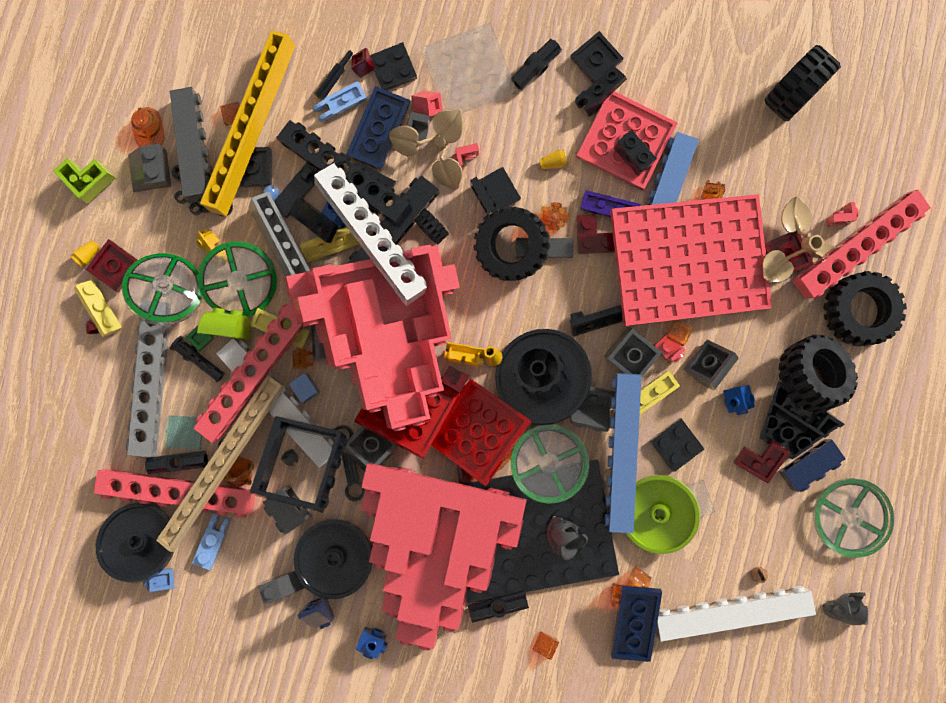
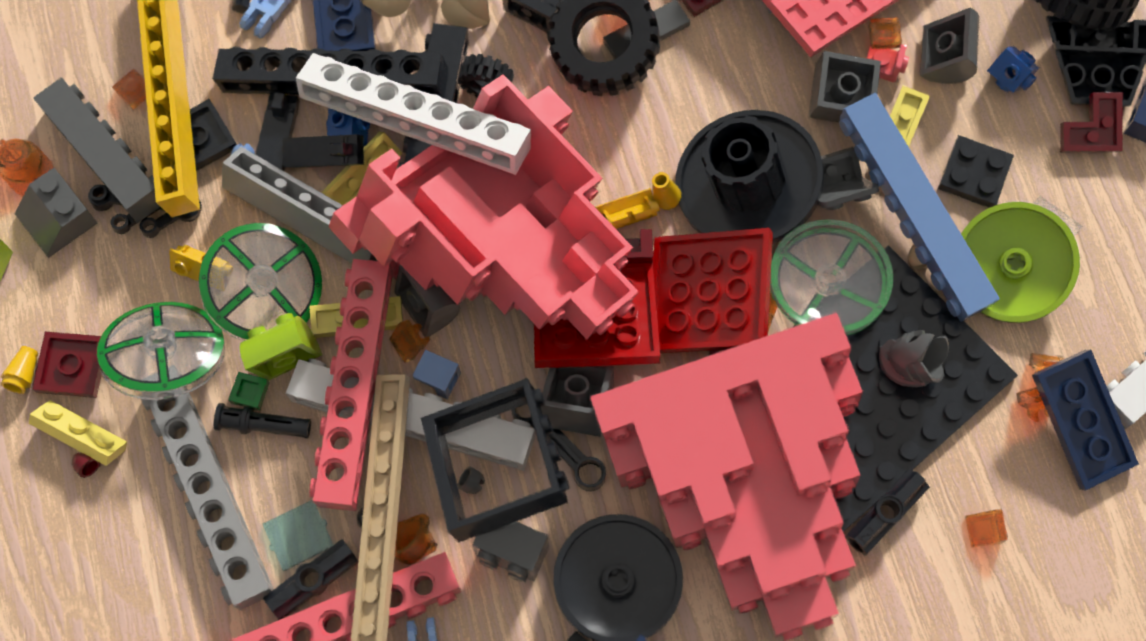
camera: 30 degrees left, 15 degrees down
(582, 324) = (771, 76): black hinge -> none

